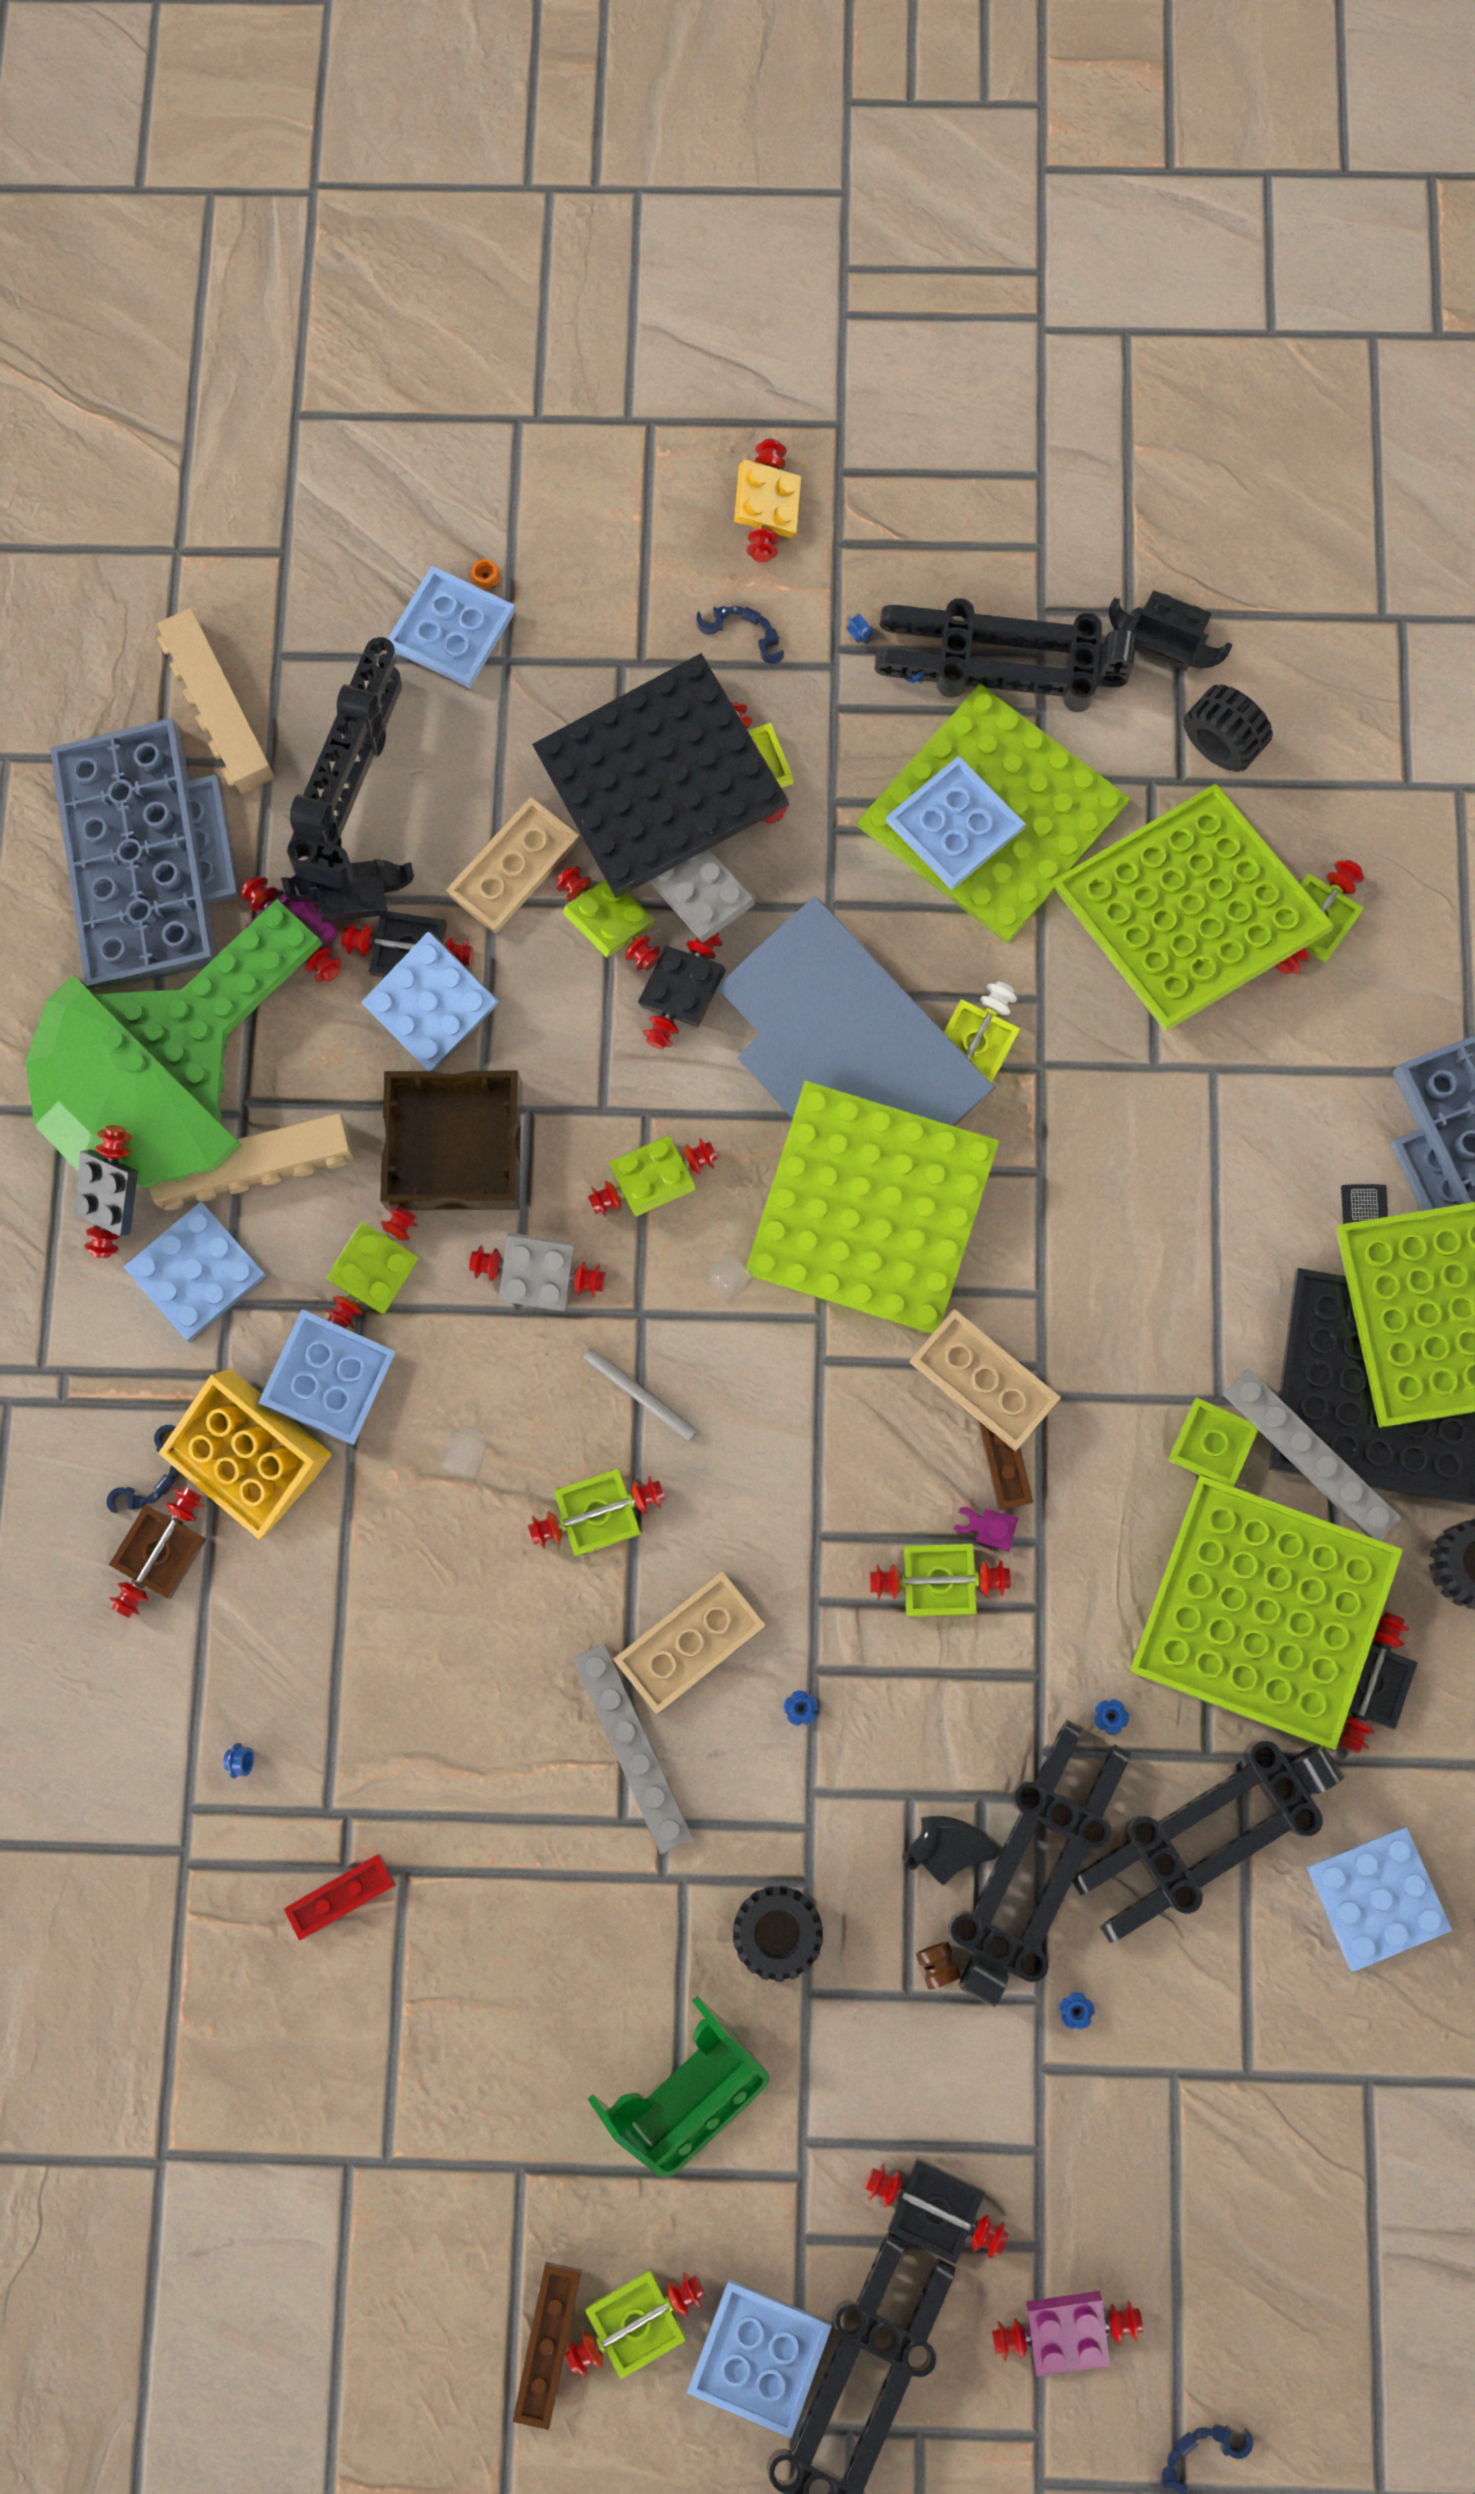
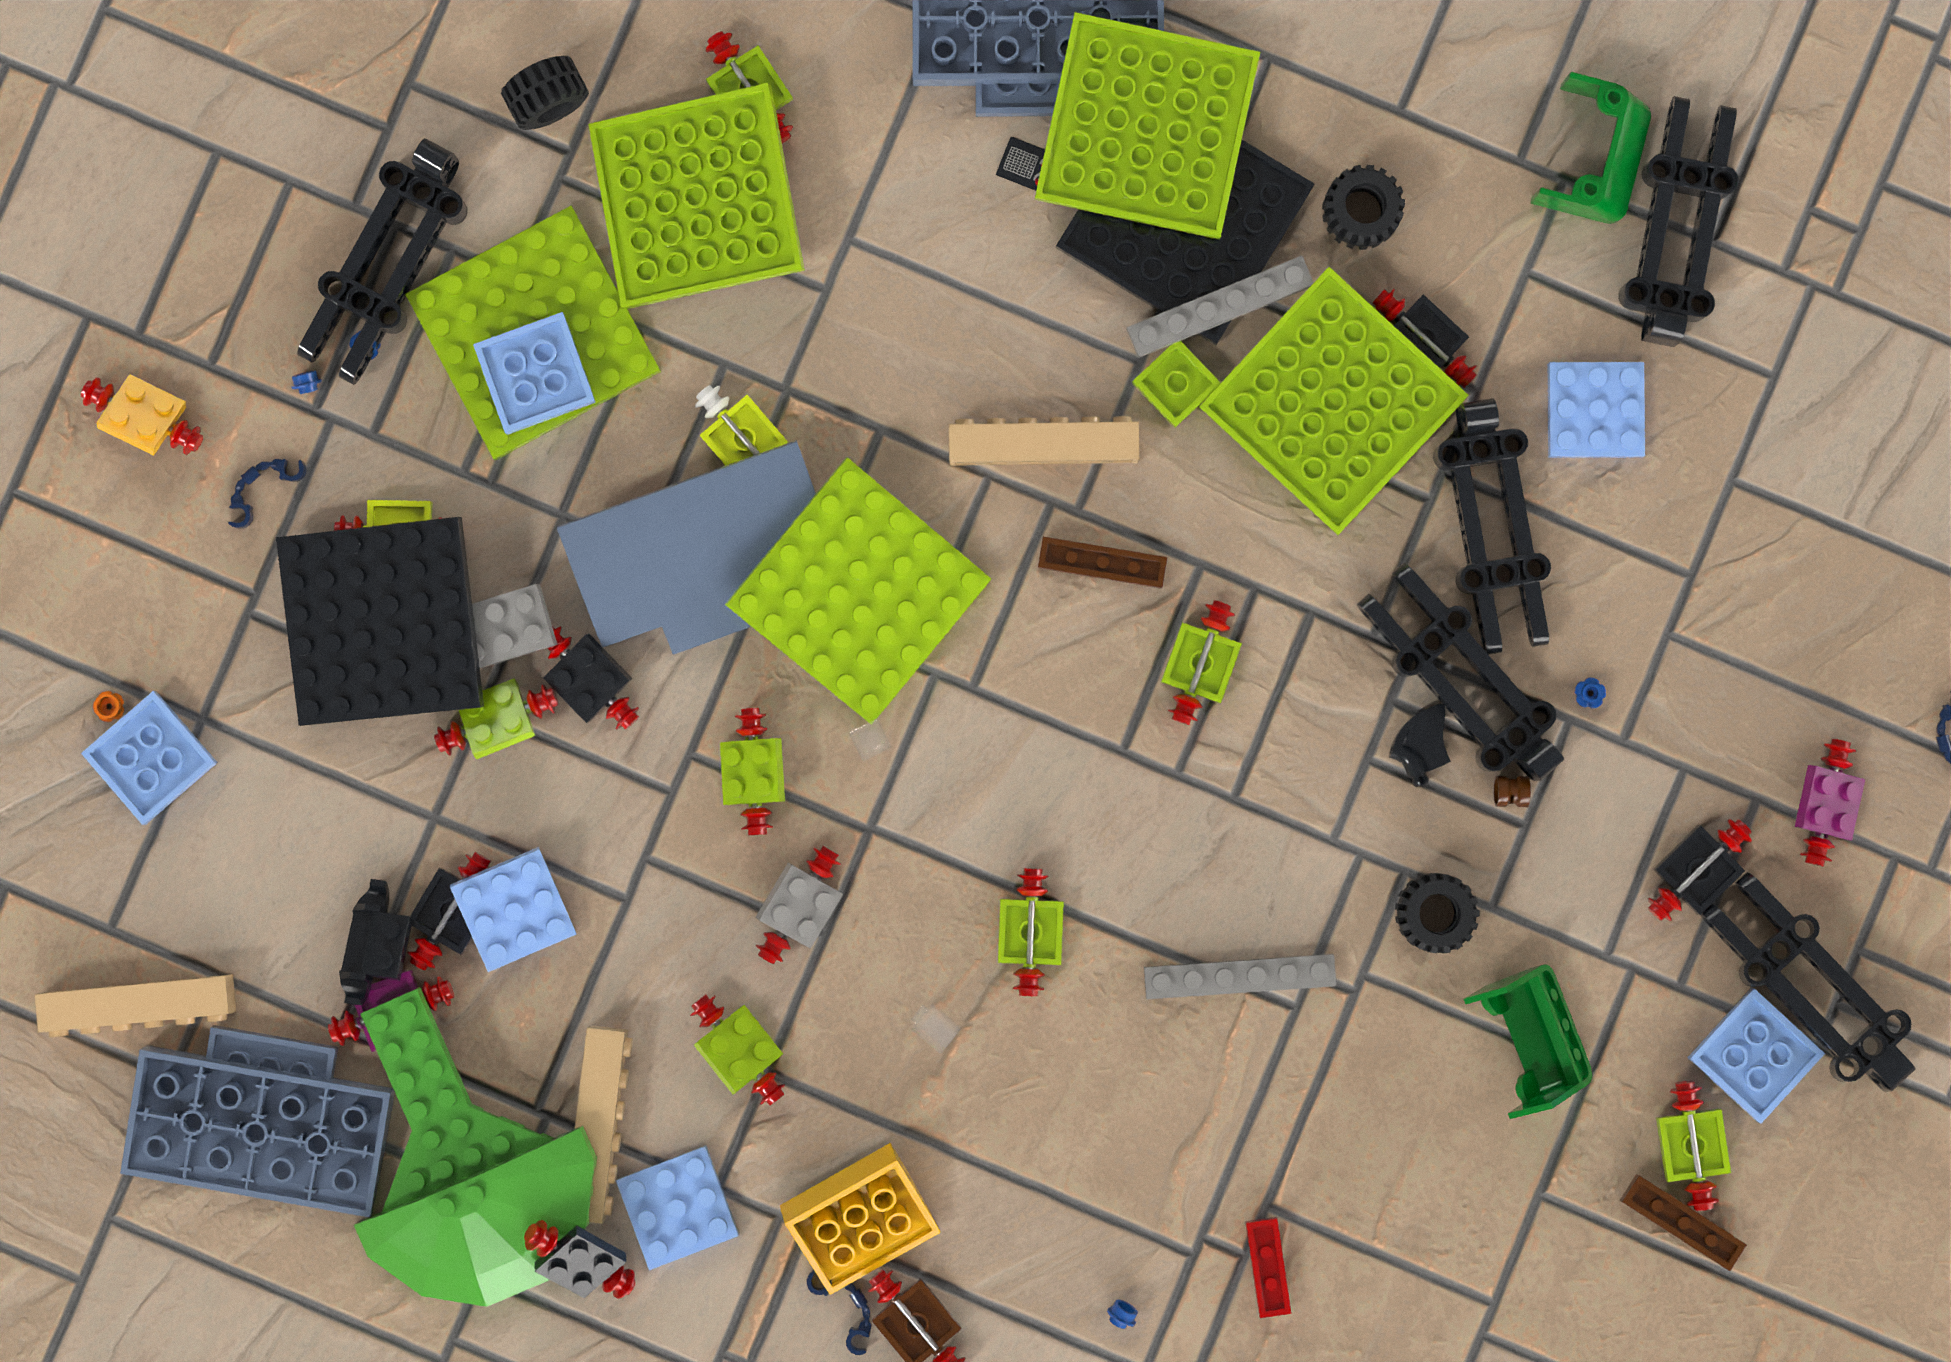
camera: 70 degrees left, 10 degrees up
(326, 1377) = (822, 1123): light blue plate -> none
(363, 726) = (248, 899): black beam -> none
(452, 1140) = (649, 936): dark brown tile -> none
(513, 865) = (409, 786): tan plate -> none
(640, 1394) = (941, 856): light grey bar -> none
(689, 1642) = (1171, 894): tan plate -> none
(800, 1698) = (1258, 830): blue plate -> none
(985, 1380) = (1048, 555): tan plate -> none
(992, 1529) = (1175, 600): magenta plate -> none
(1096, 1334) = (1043, 442): none -> tan brick
(1101, 1718) = (1360, 569): blue plate -> none
(1170, 631) = (425, 101): black plate -> none

